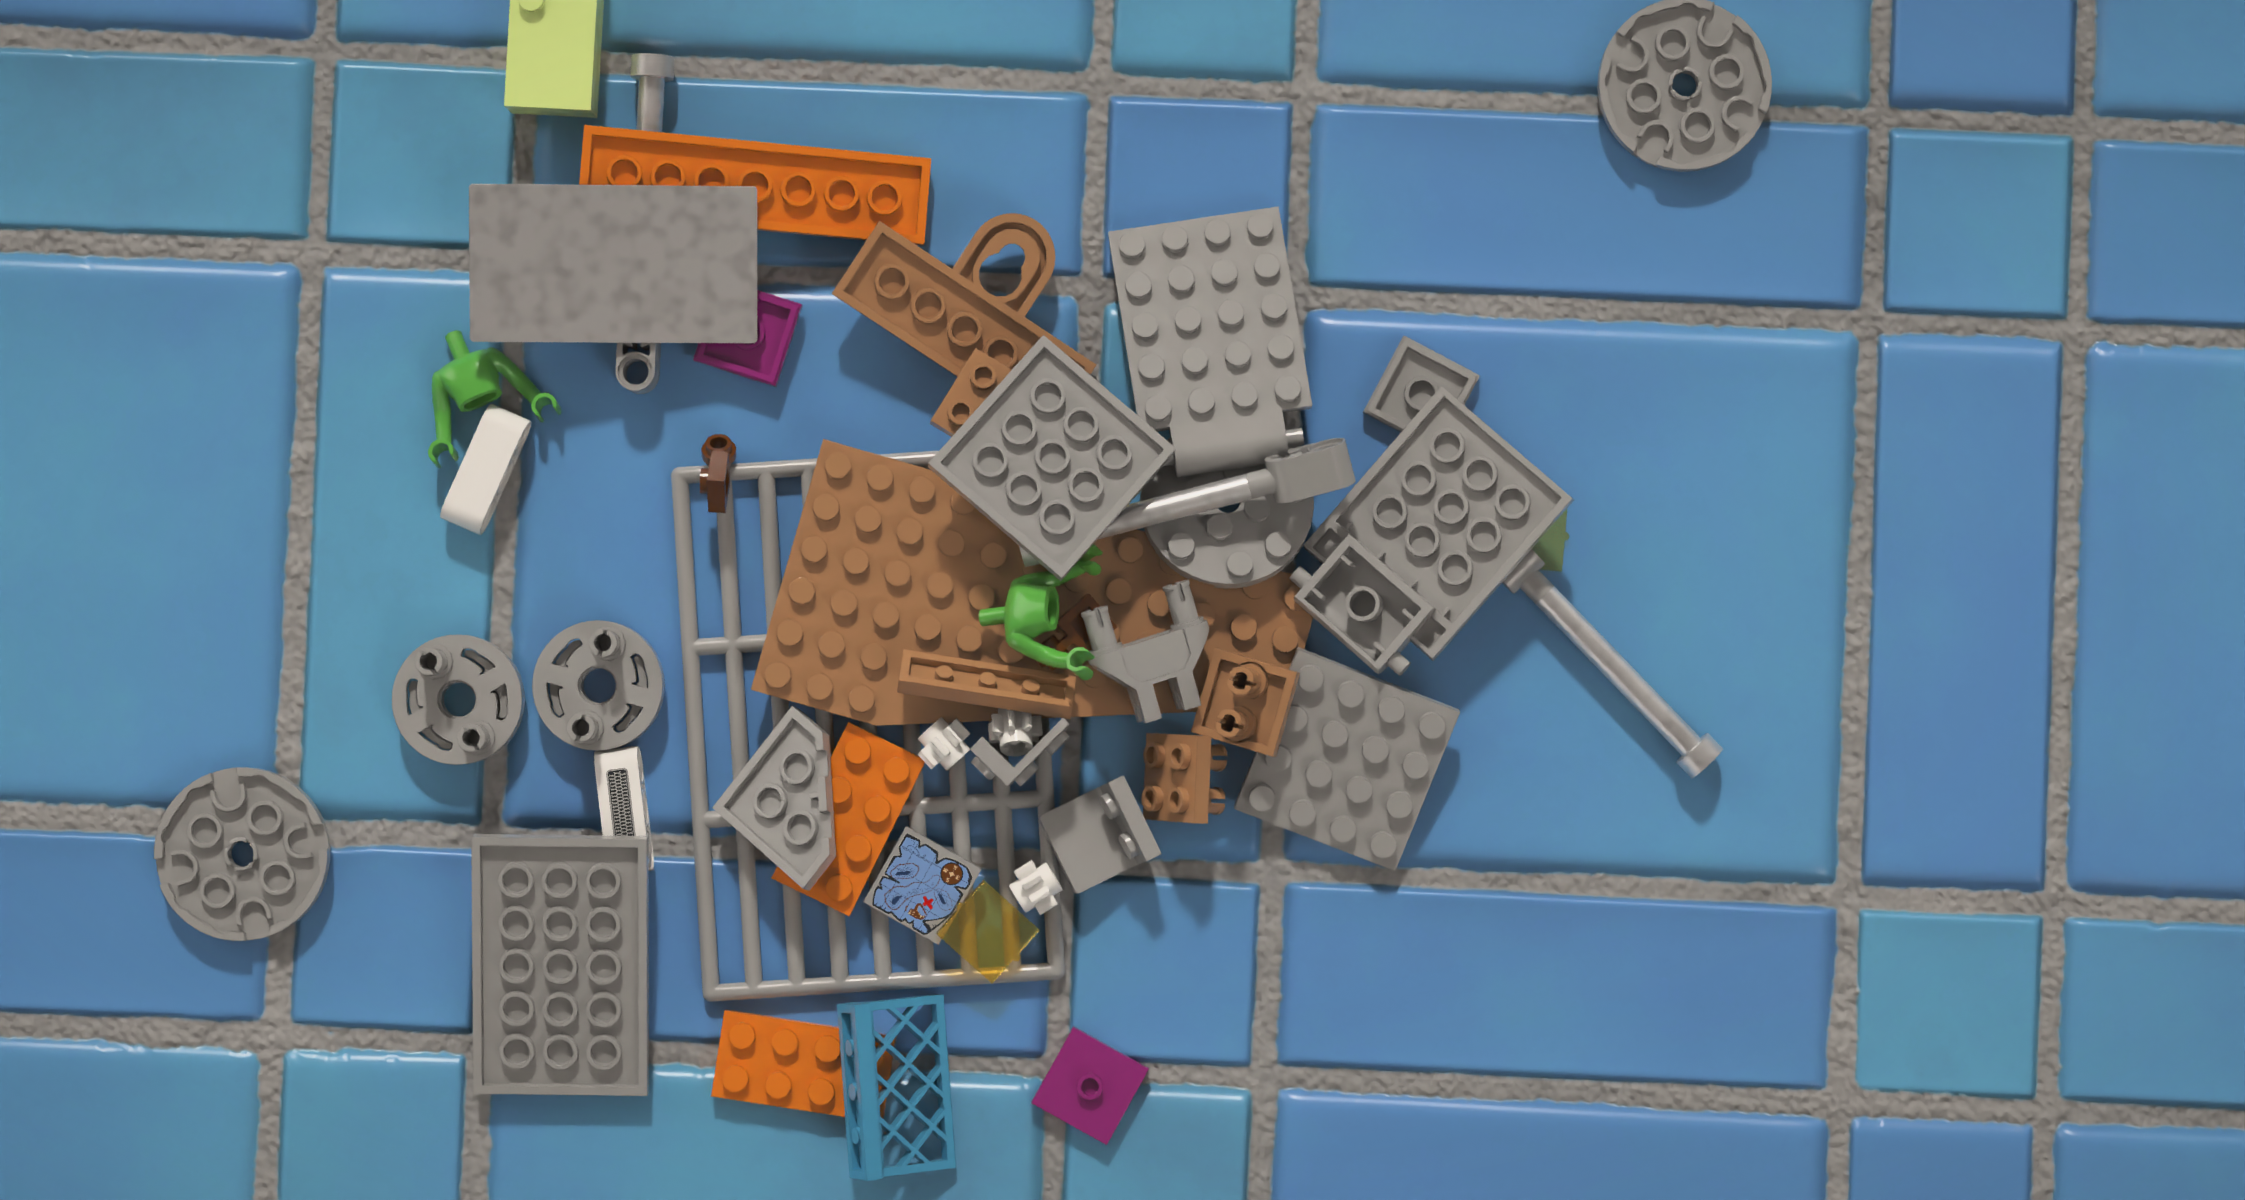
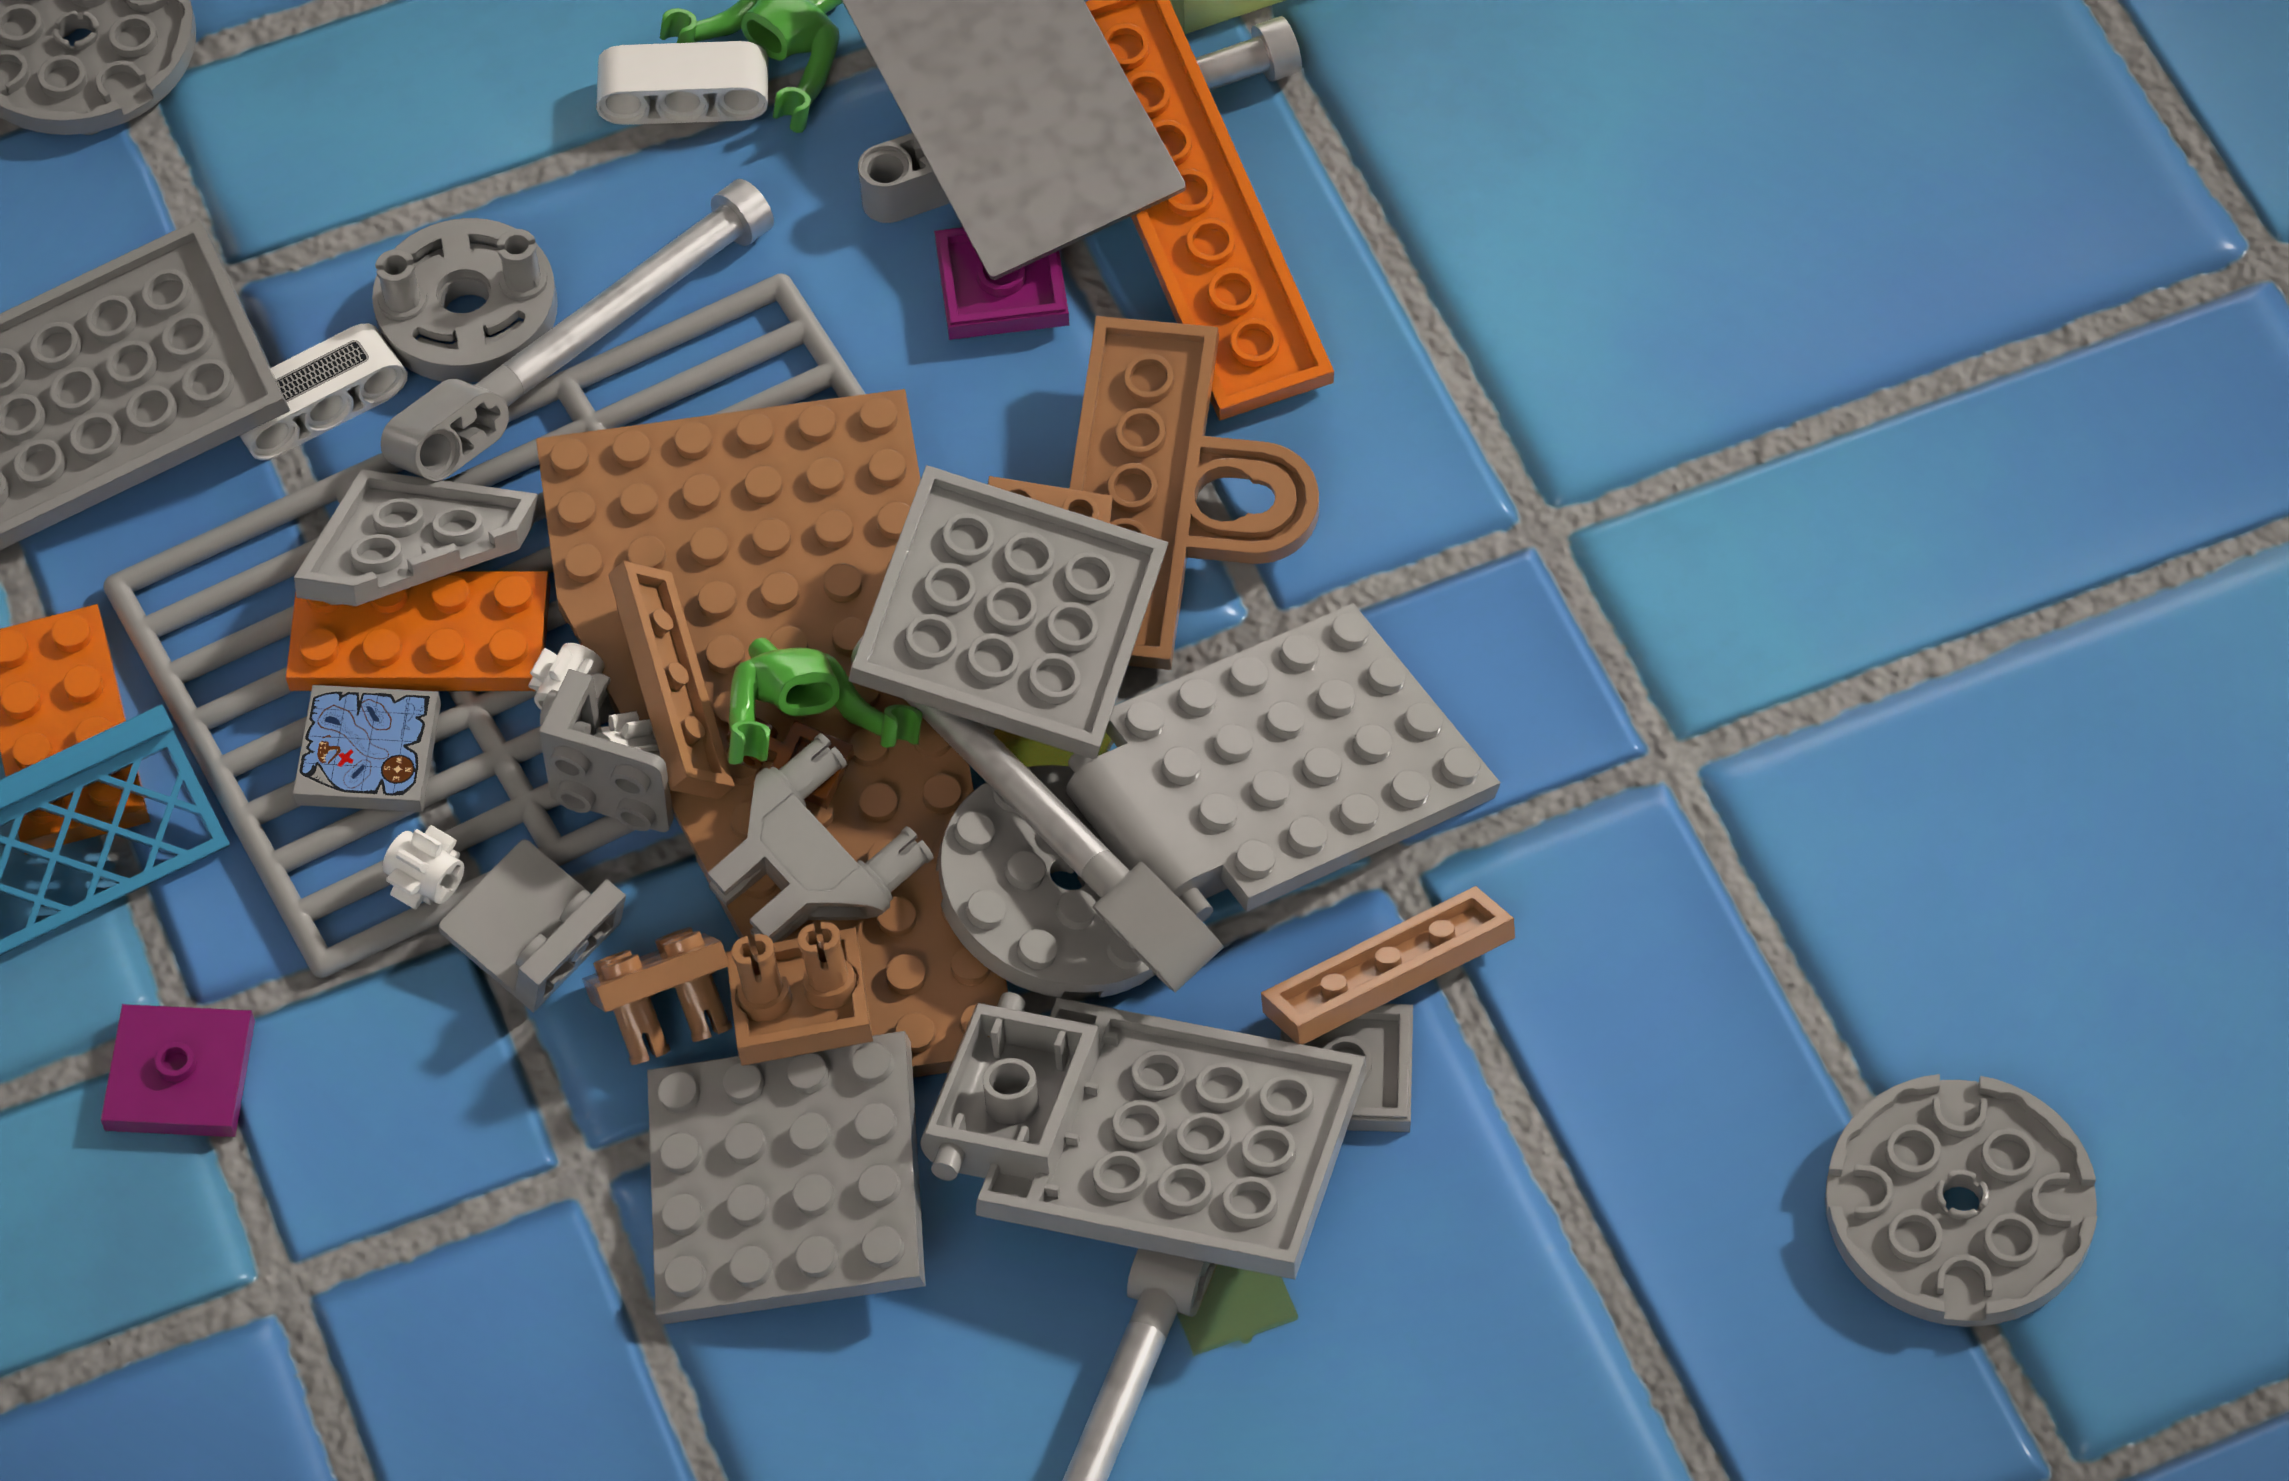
camera: 65 degrees right, 30 degrees down
(438, 667) = (367, 128): light grey piece -> none
(707, 725) = (464, 419): none -> piece
(718, 454) = (796, 298): reddish brown plate -> none
(987, 931) = (337, 845): clear yellow piece -> none
(1378, 339) = (1387, 965): none -> medium nougat plate

